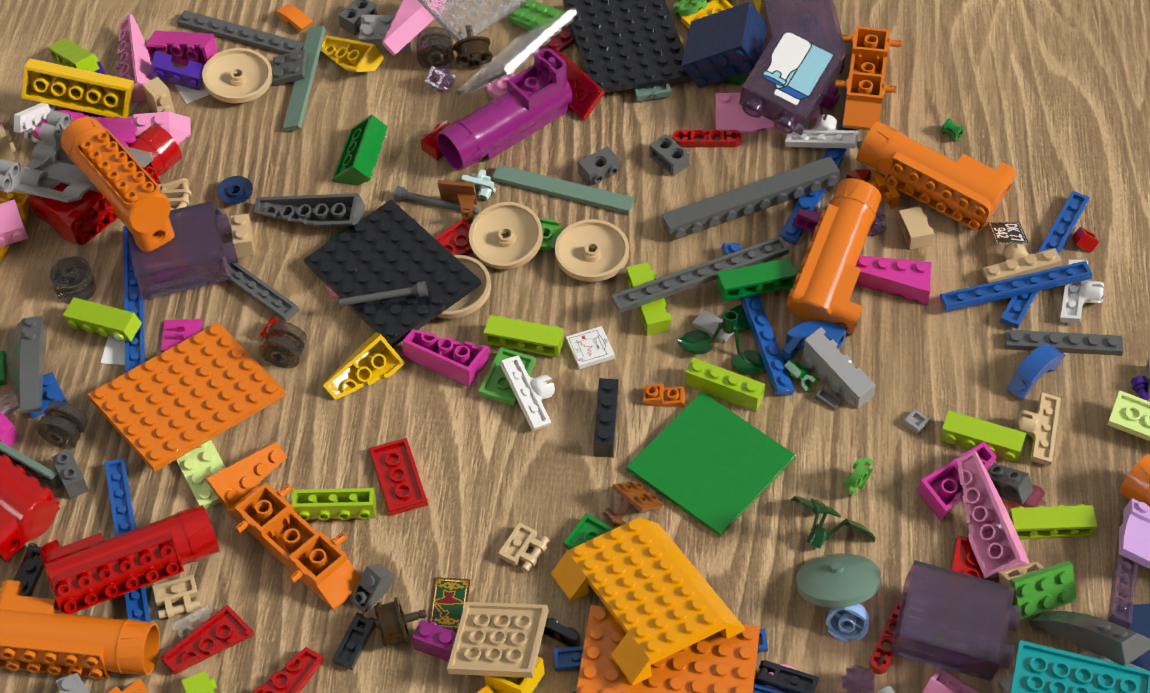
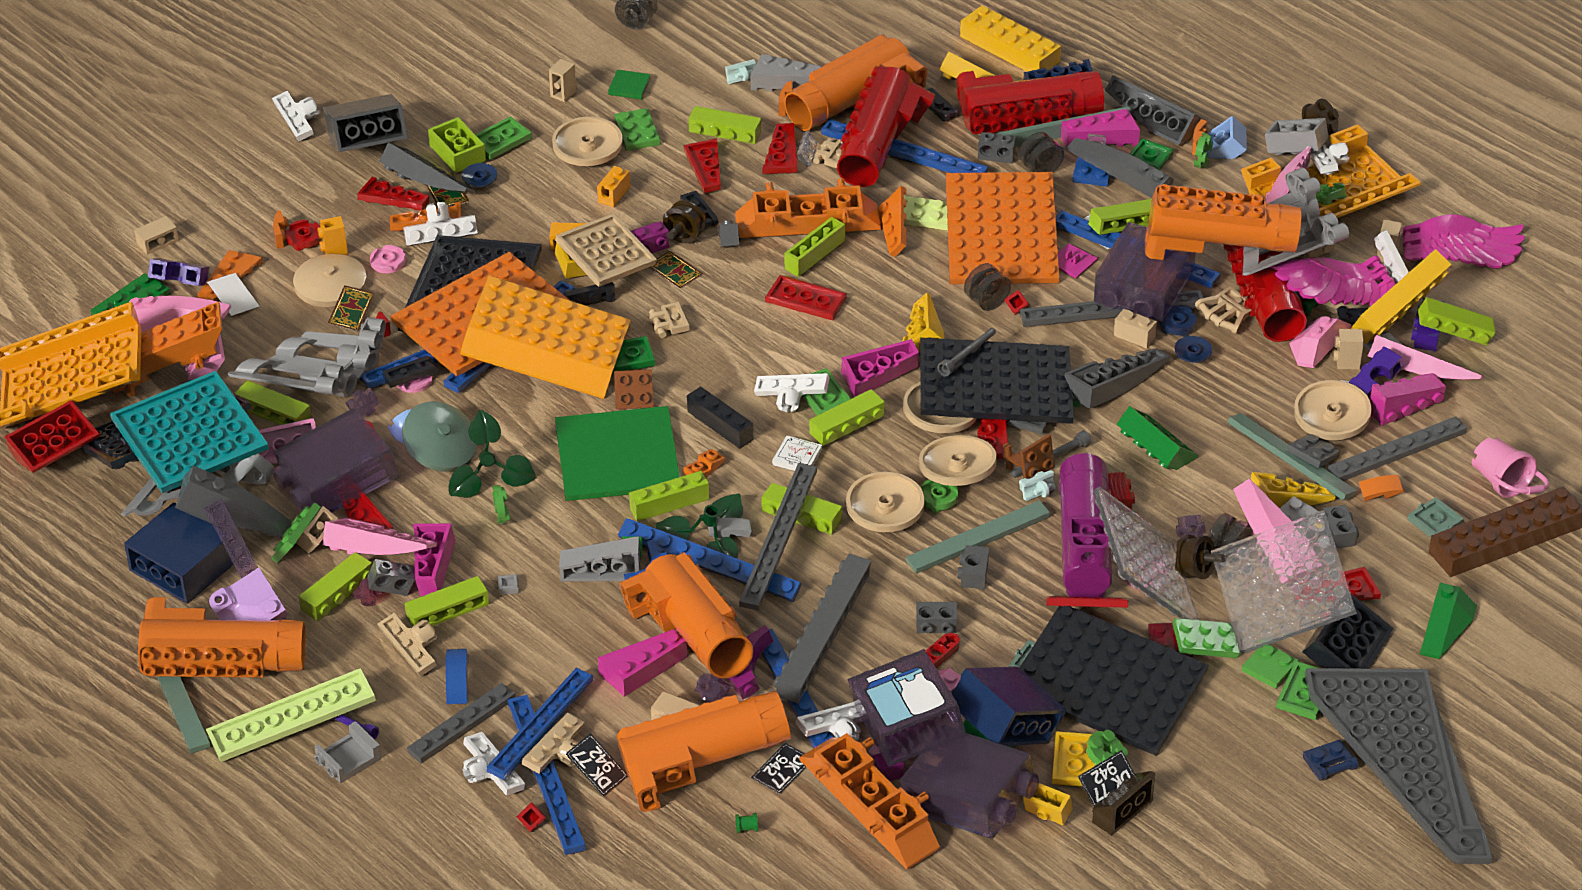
camera: 130 degrees right, 10 degrees down
(755, 279) = (736, 560): green brick -> none

